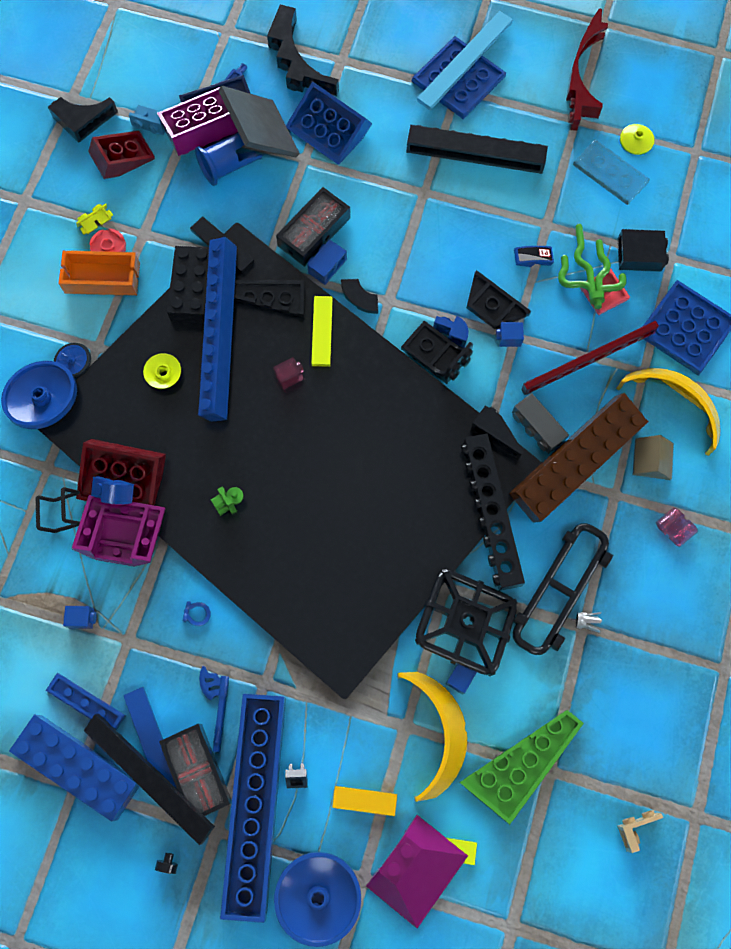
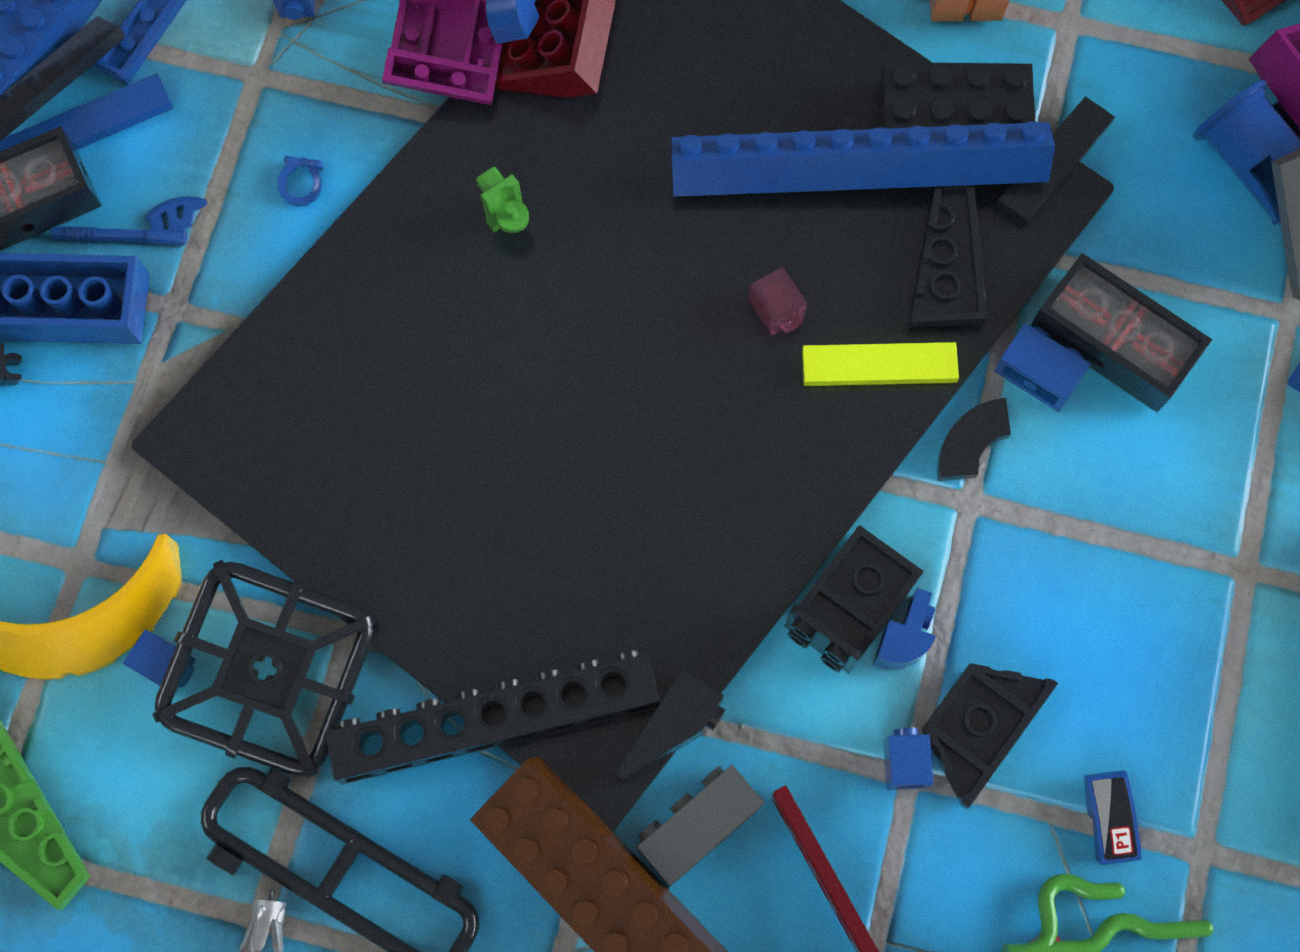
camera: 90 degrees right, 0 degrees up
(162, 363) = (768, 60): neon yellow dish -> none

